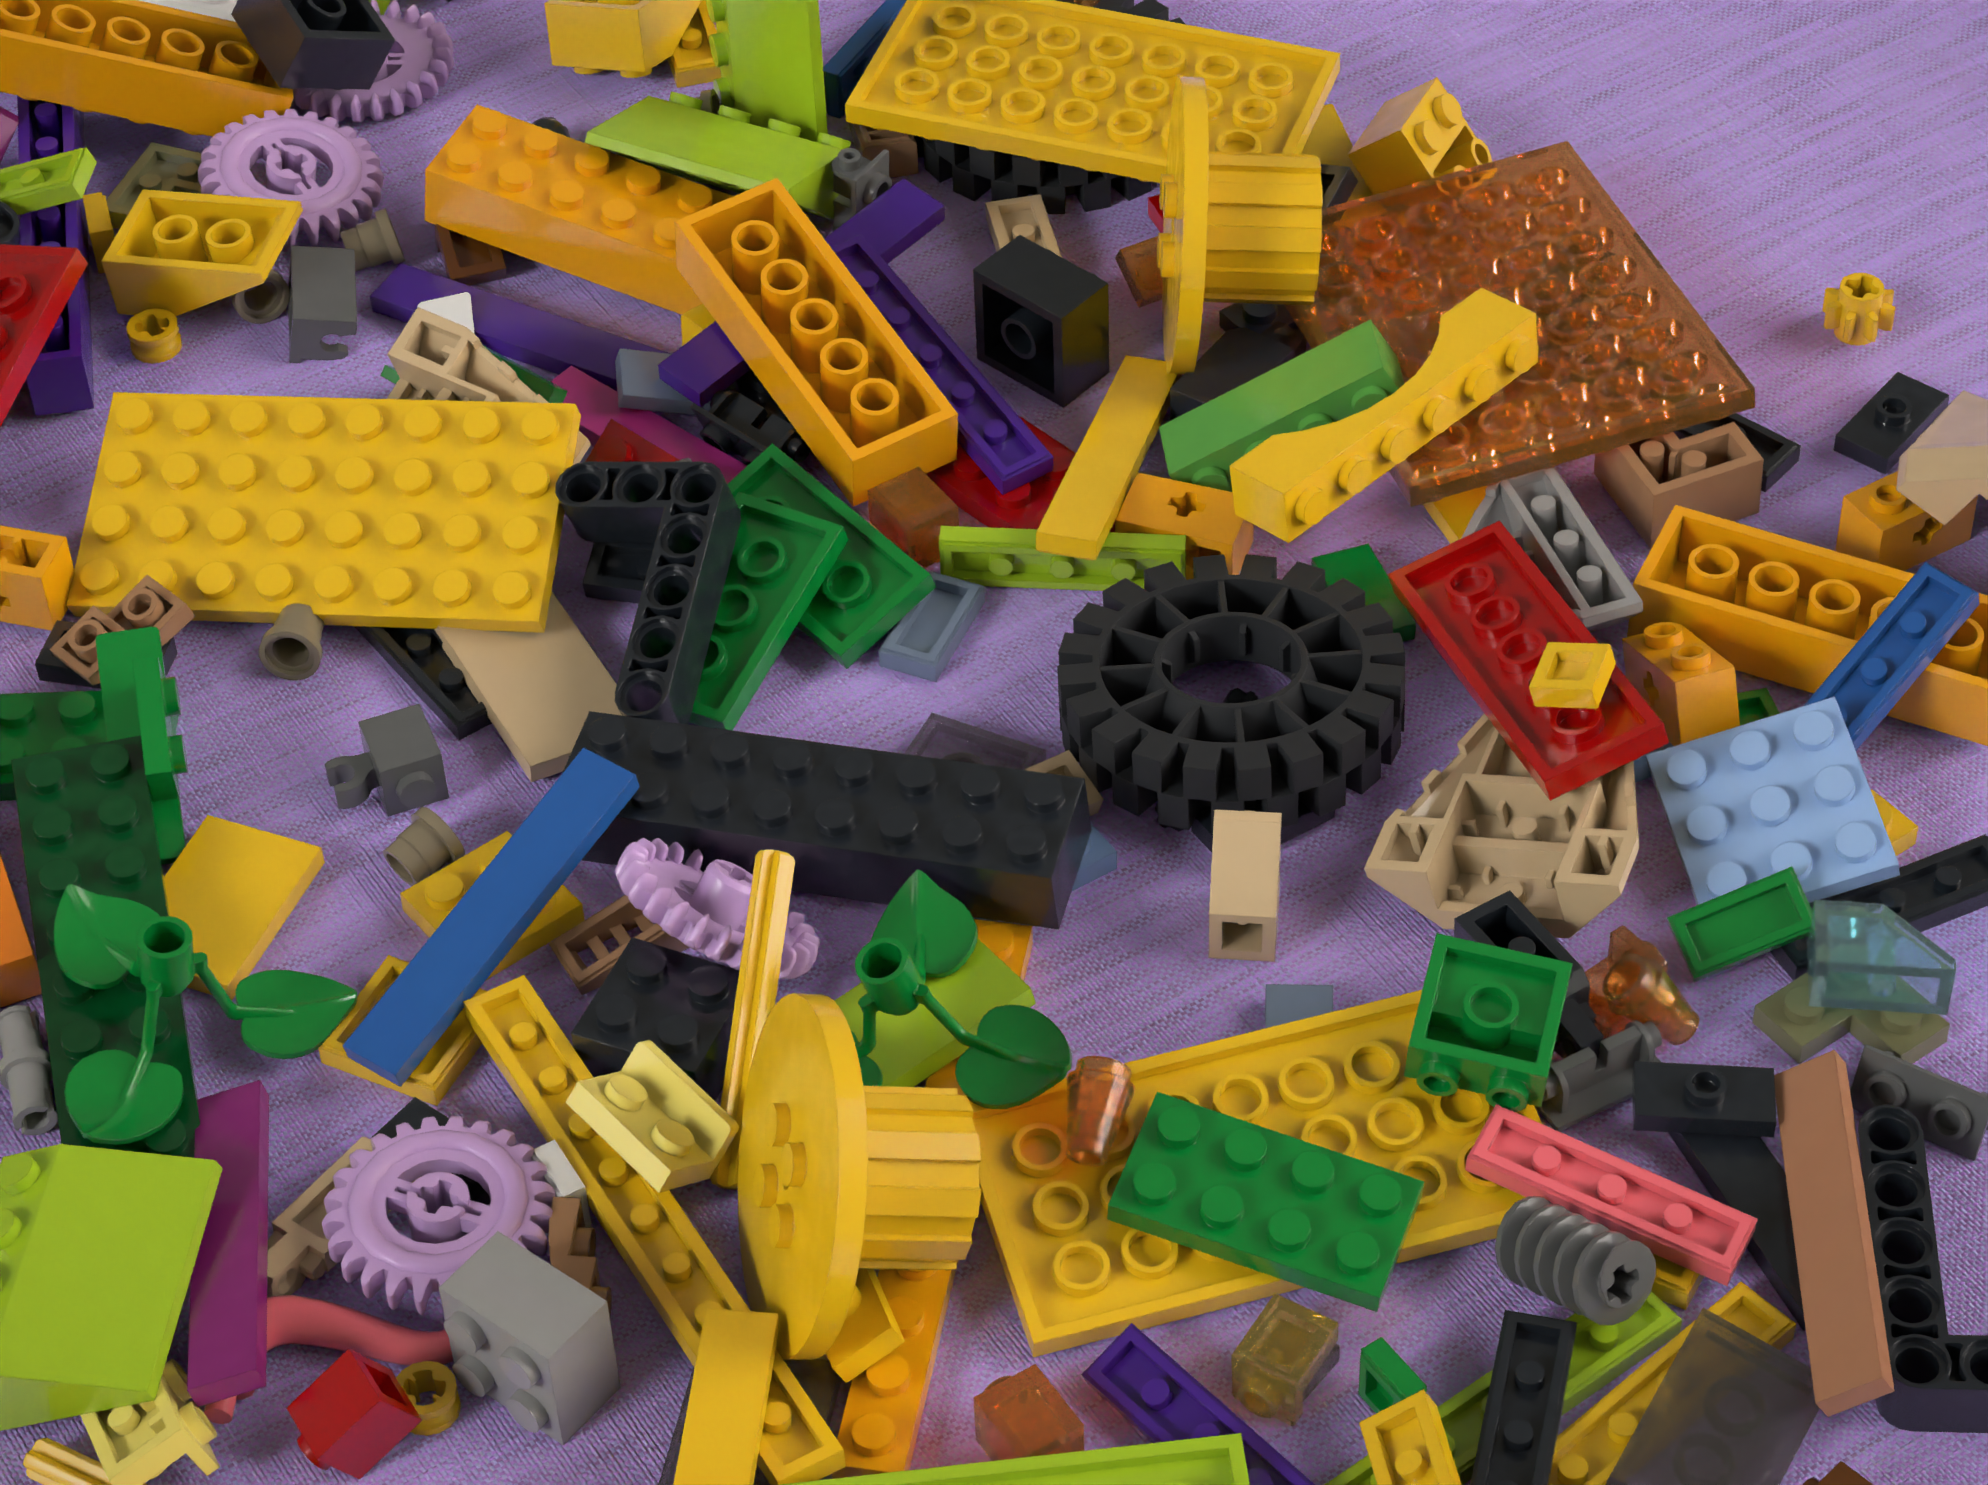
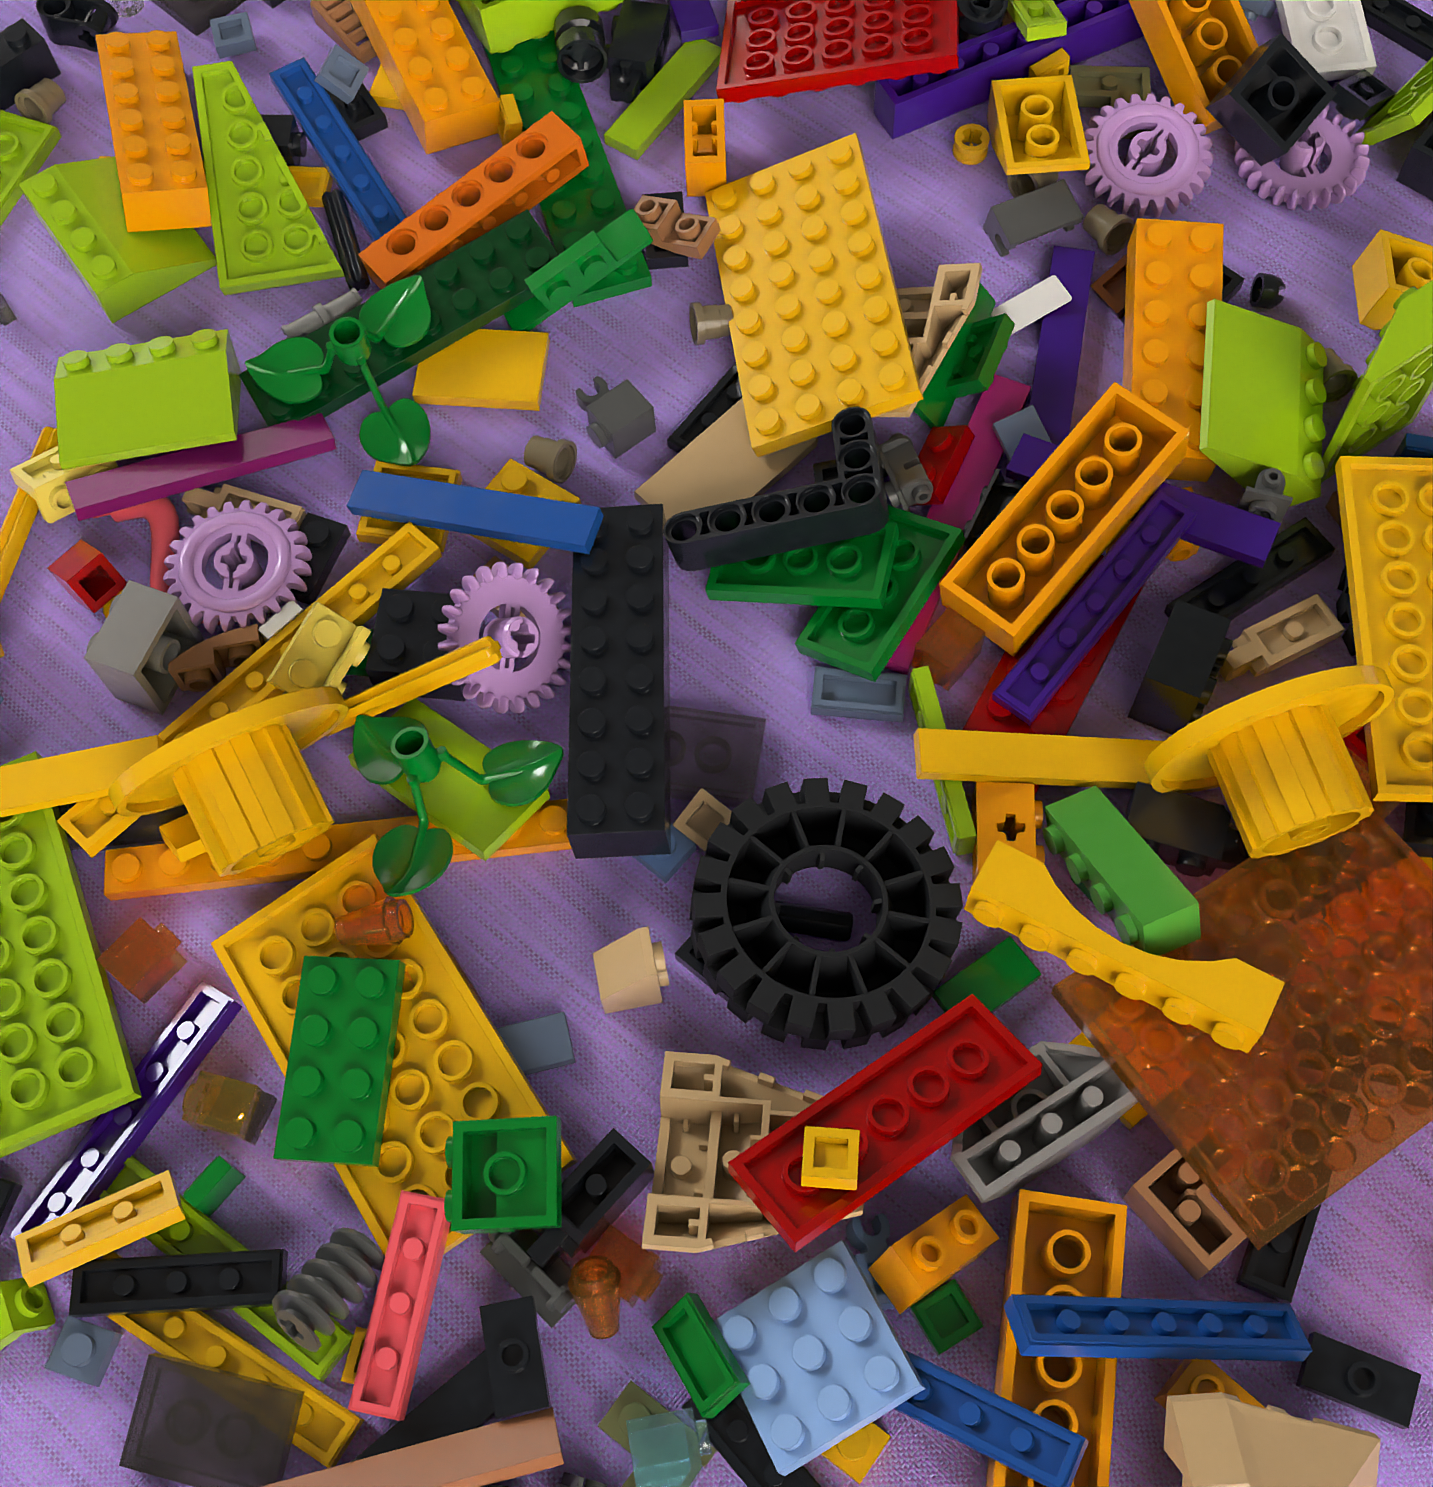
camera: 75 degrees right, 20 degrees up
(942, 276) = (1245, 585): none -> black tile
(1815, 509) = (1155, 1328): none -> blue tile

